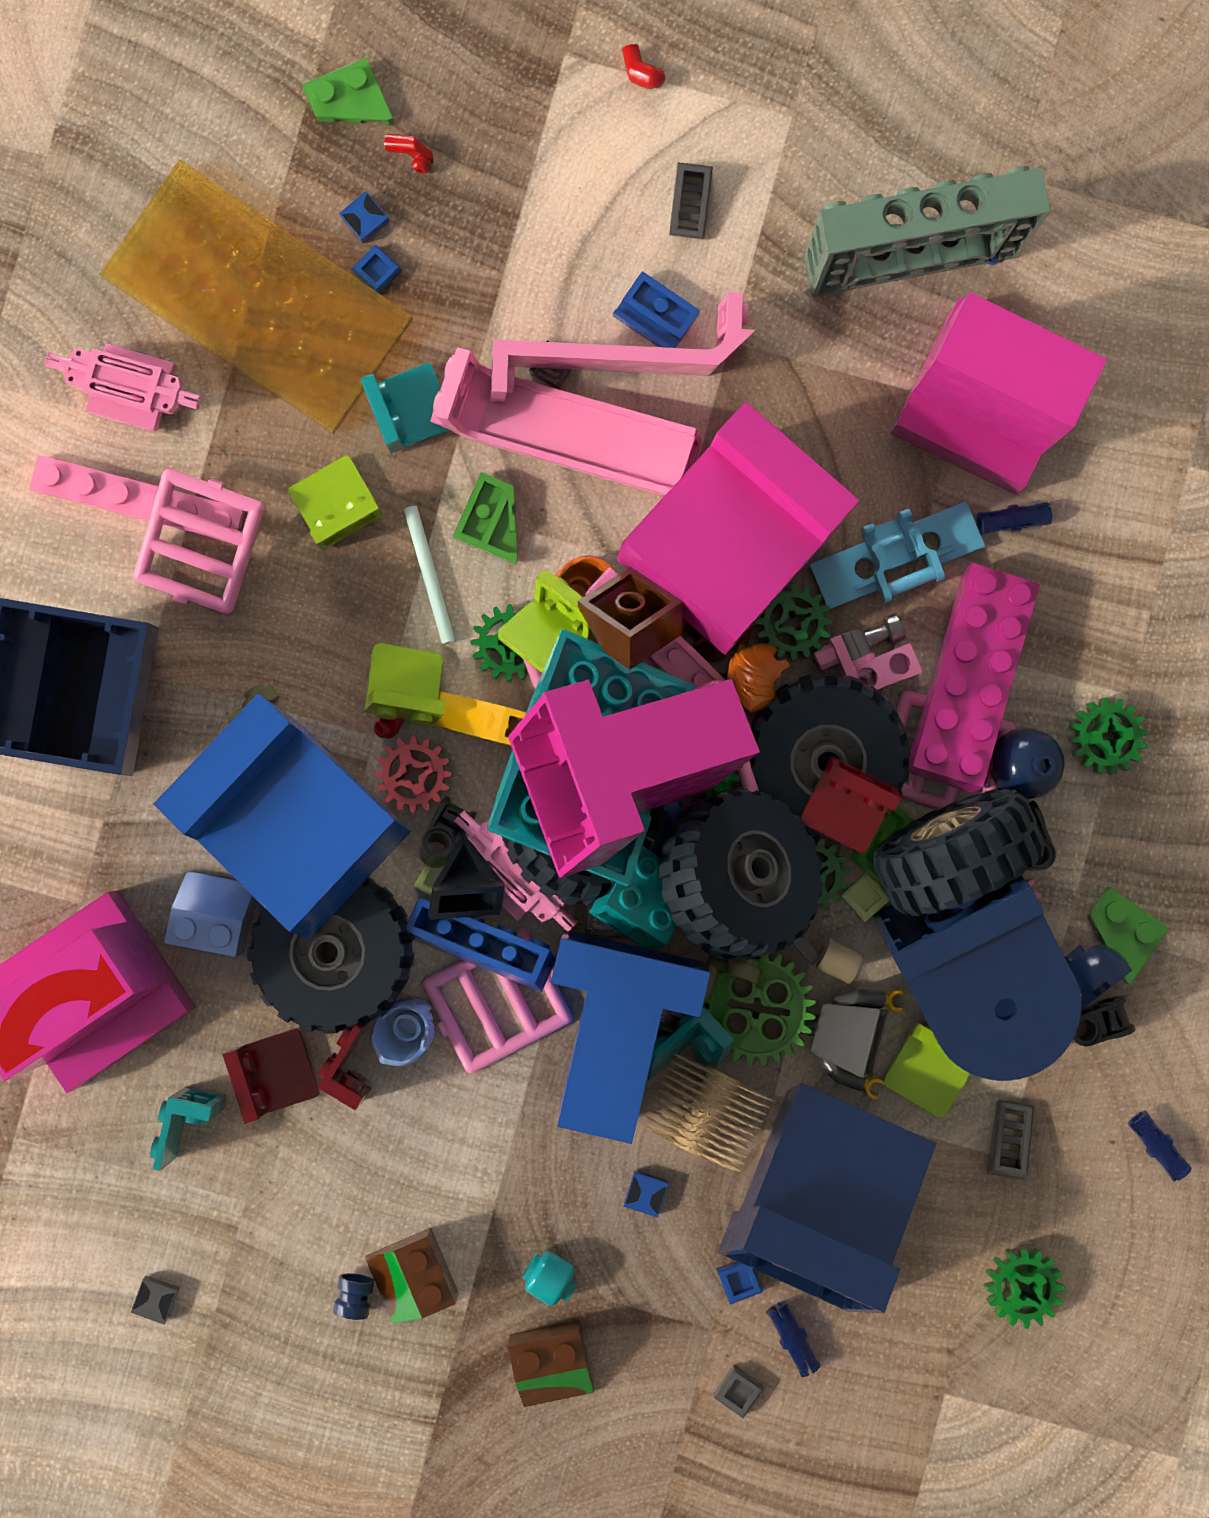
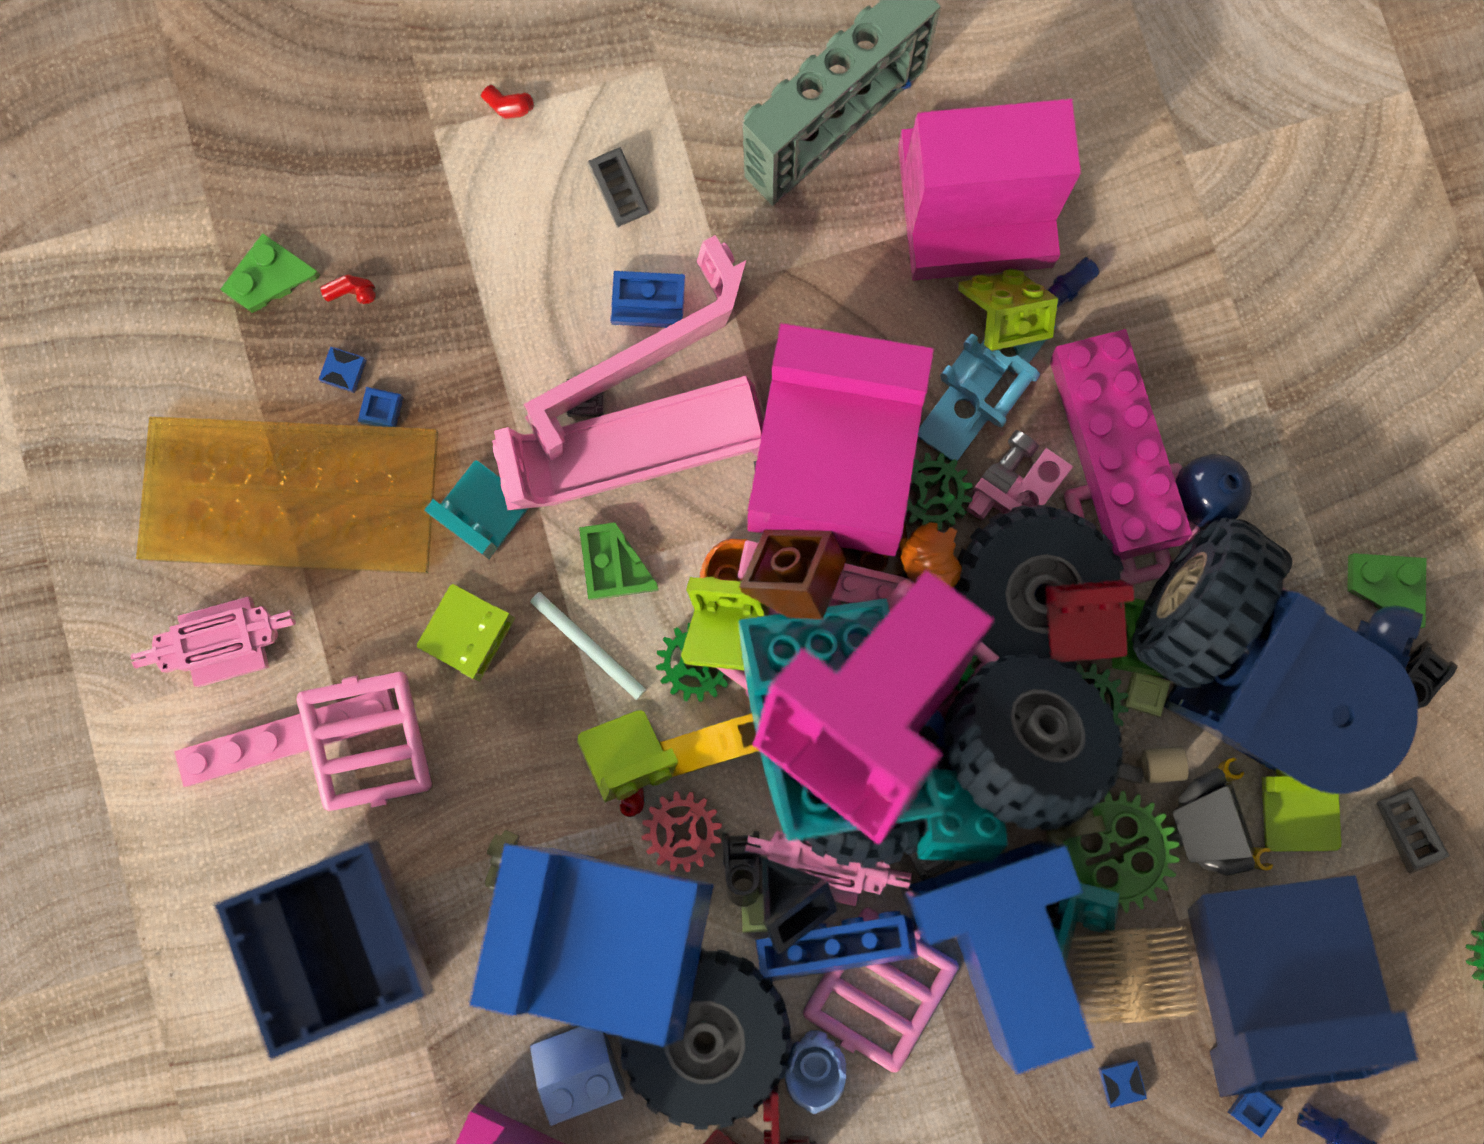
camera: 25 degrees left, 5 degrees down
(958, 508) = (1015, 308): none -> lime bracket
(1108, 750) = (1255, 412): green gear -> none

